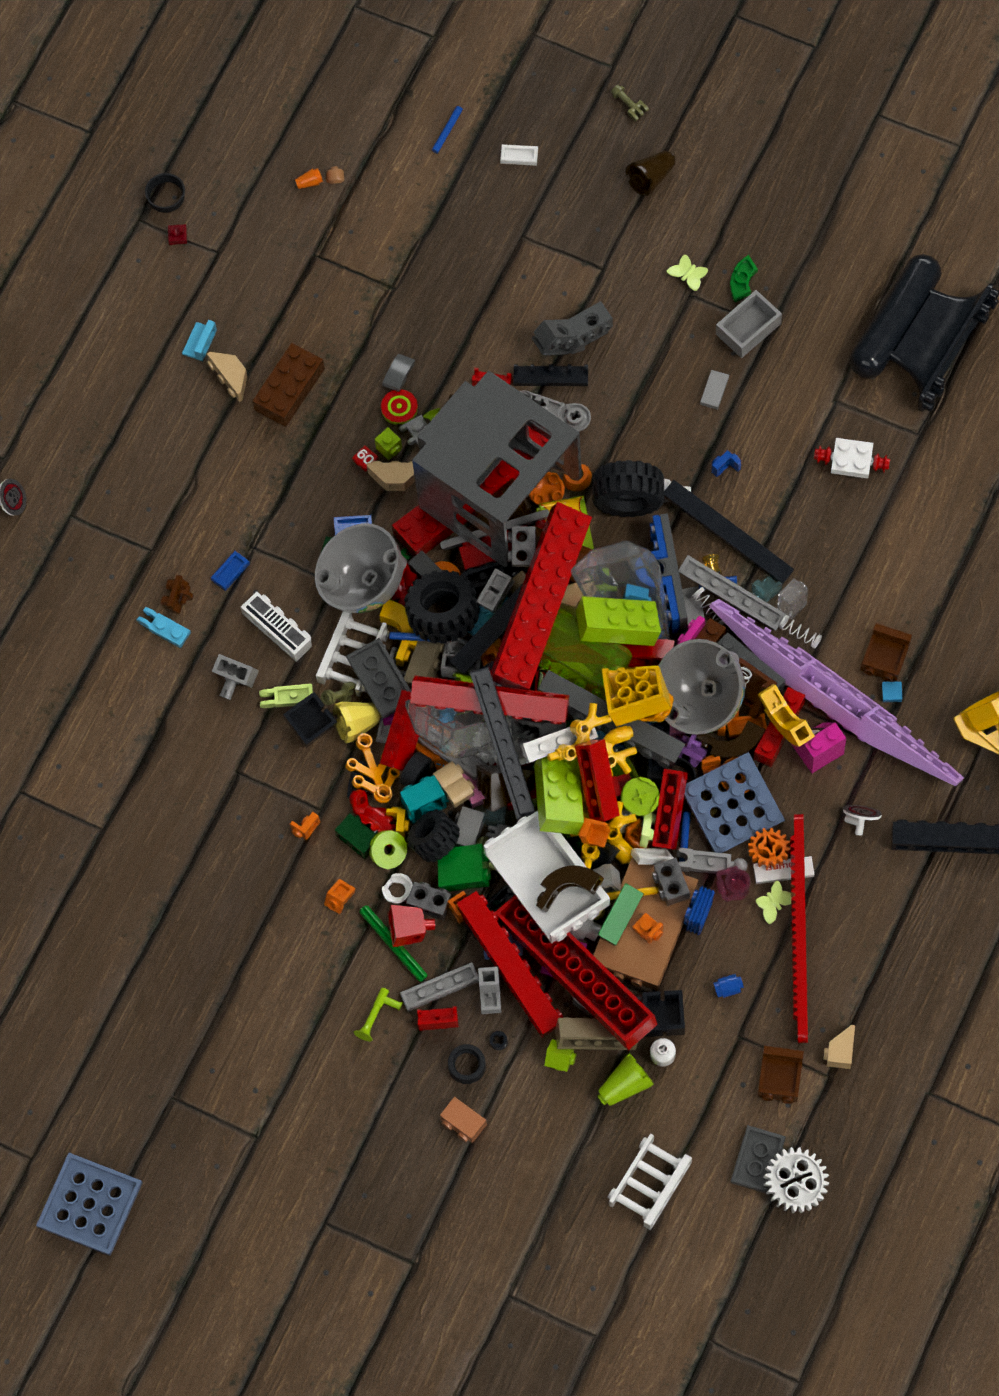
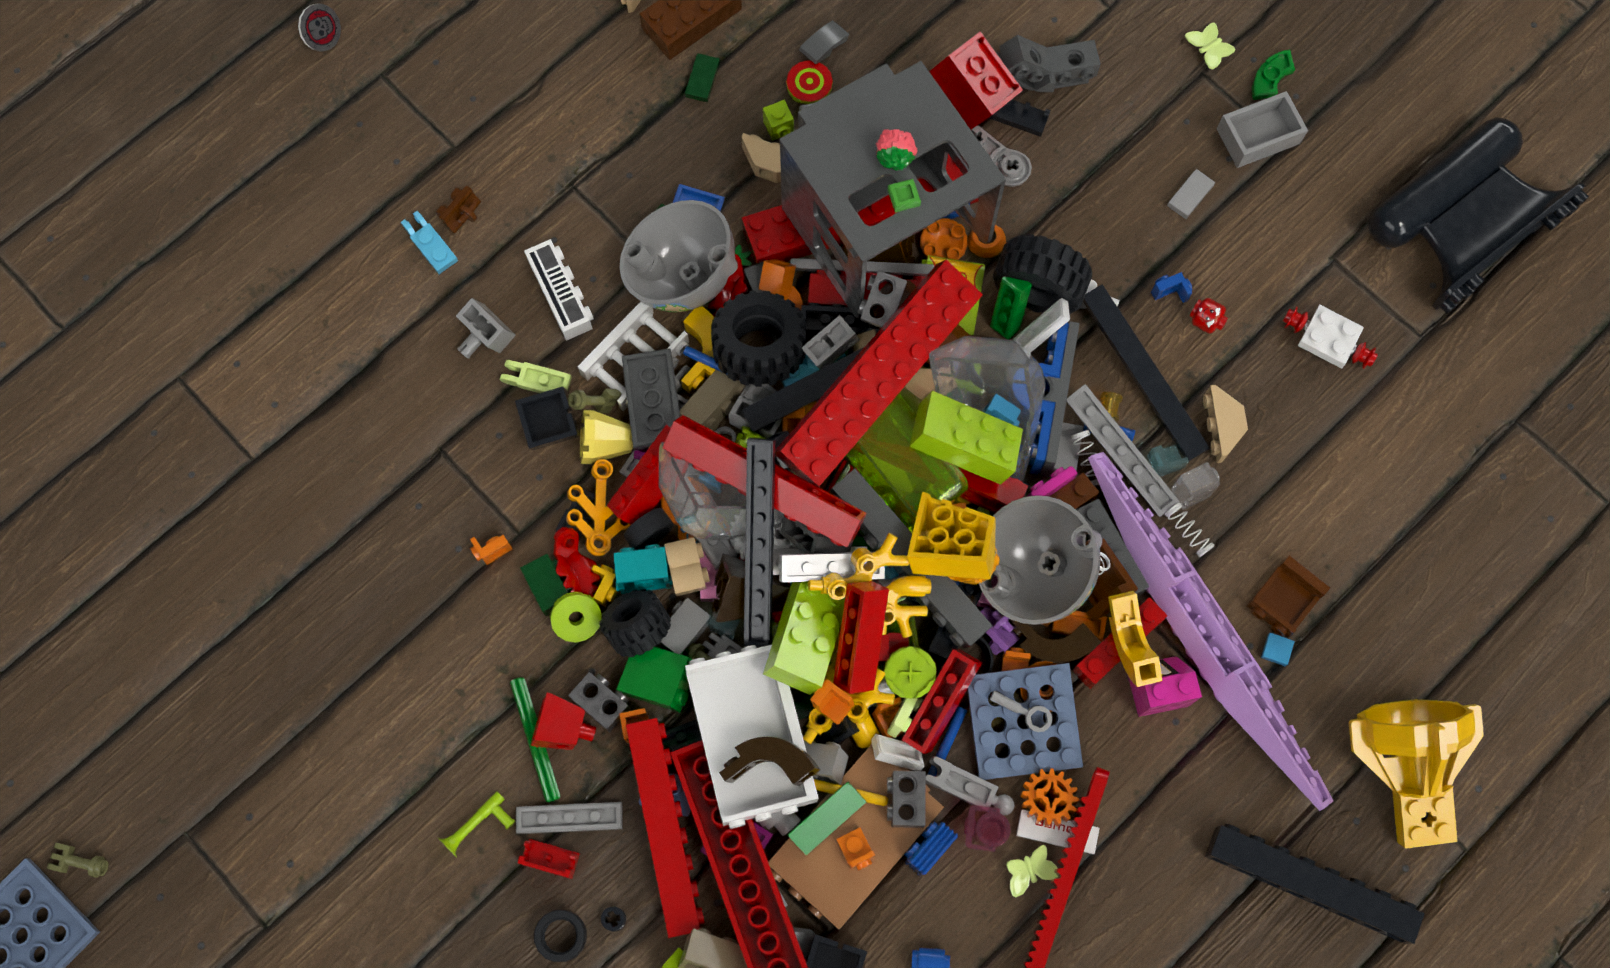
camera: 15 degrees right, 5 degrees up
(121, 1140) = (96, 867): none -> olive hinge
(230, 570) = (534, 204): blue tile -> none
(317, 431) = (702, 77): none -> dark green tile
(338, 896) = (493, 652): orange bracket -> none
(363, 457) = (745, 124): red tile -> none
(397, 878) = (554, 670): white piece -> none
(435, 558) = (777, 276): none -> orange panel
(489, 990) = (626, 851): light grey brick -> none
(497, 439) = (895, 149): none -> piece
(514, 468) = (904, 195): none -> bright green tile
(525, 364) = (975, 80): none -> red container
(613, 519) = (1010, 306): none -> green slope
(643, 523) = (1044, 325): none -> white tile
(723, 794) = (1017, 708): none -> light grey piece
(759, 474) = (1208, 315): none -> red head
(798, 546) = (1225, 421): none -> tan slope
(858, 814) = (1180, 797): shield -> none

